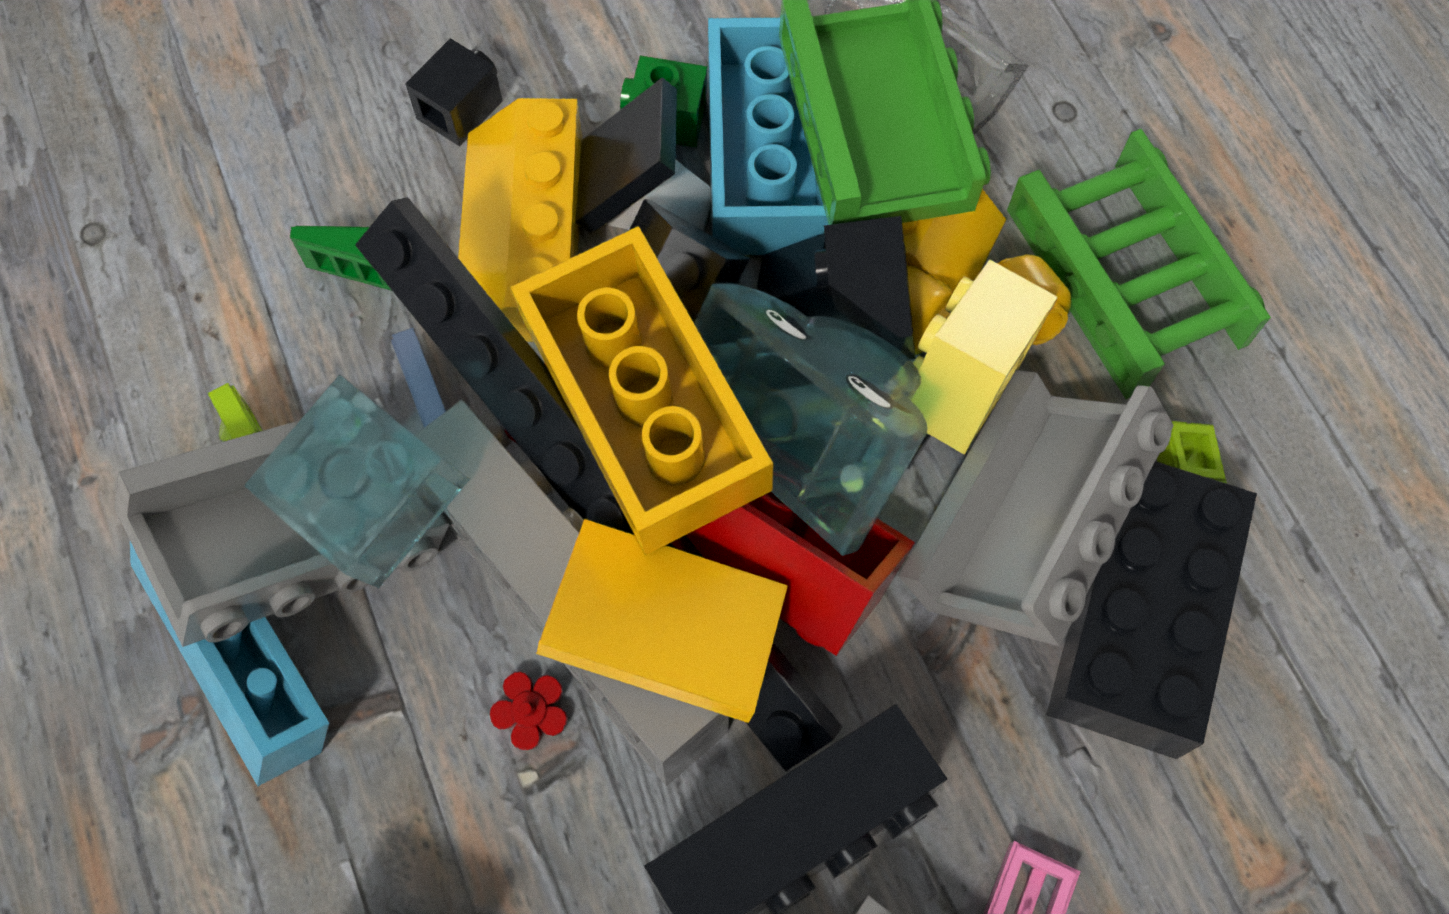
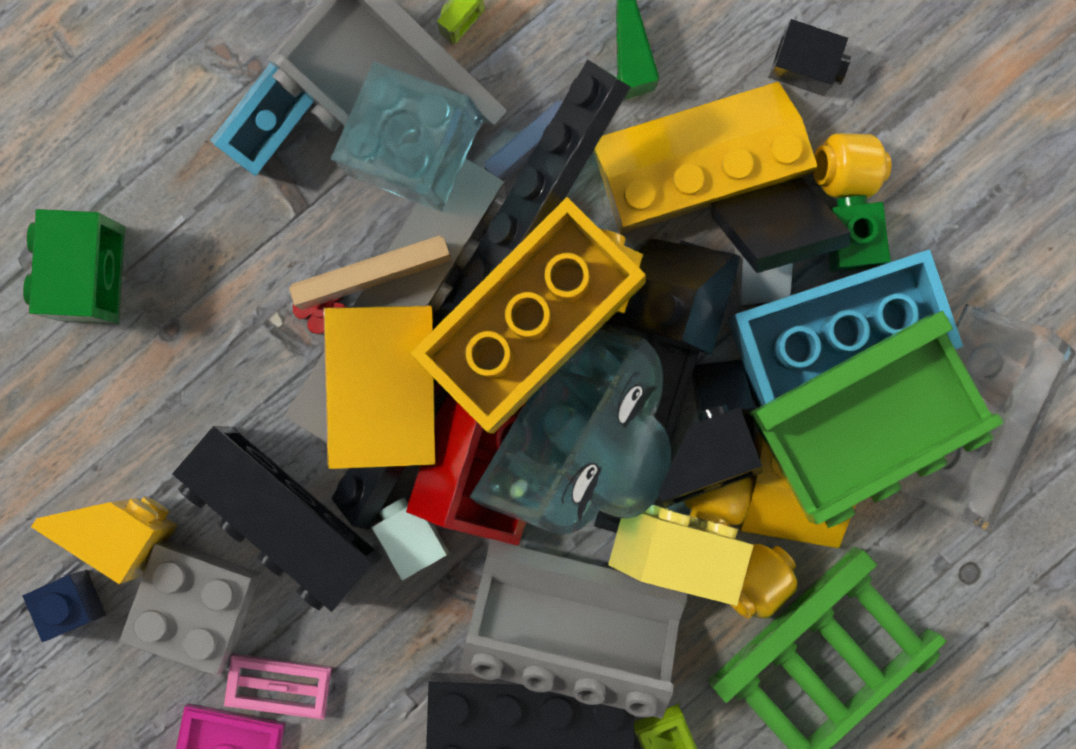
camera: 70 degrees right, 20 degrees up
(513, 579) = (370, 272): none -> tan tile
(592, 76) = (851, 165): none -> yellow head
(868, 678) = (408, 539): none -> light aqua brick

